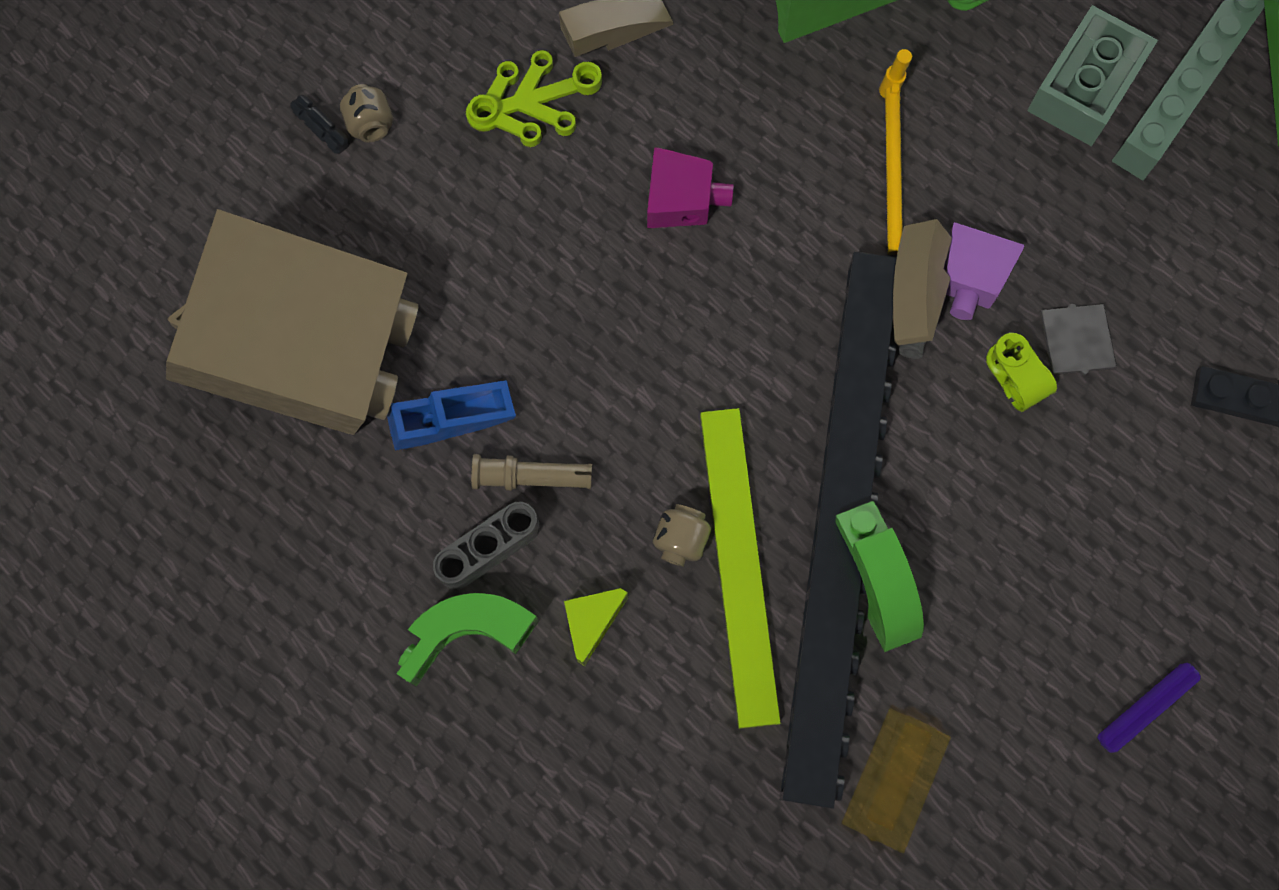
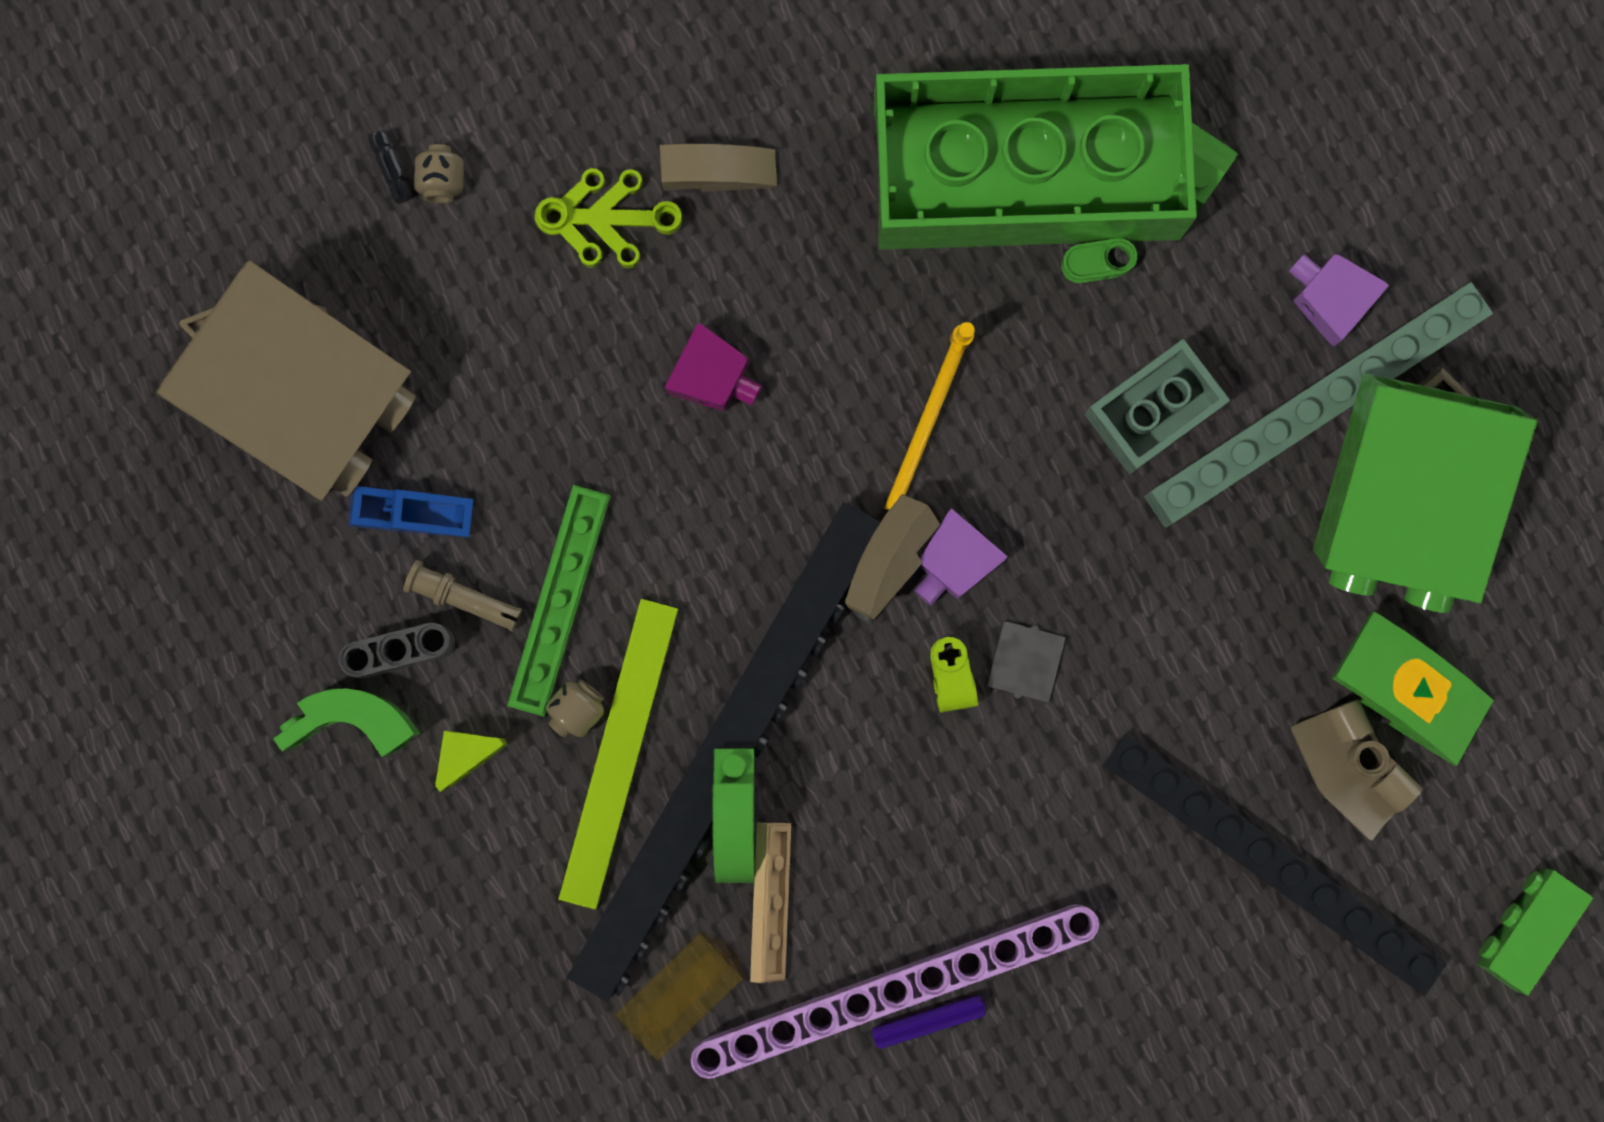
camera: 20 degrees right, 10 degrees up
(623, 447) = (559, 600): none -> bright green tile
(950, 653) = (770, 902): none -> tan tile
(1123, 680) = (880, 1005): none -> lavender beam

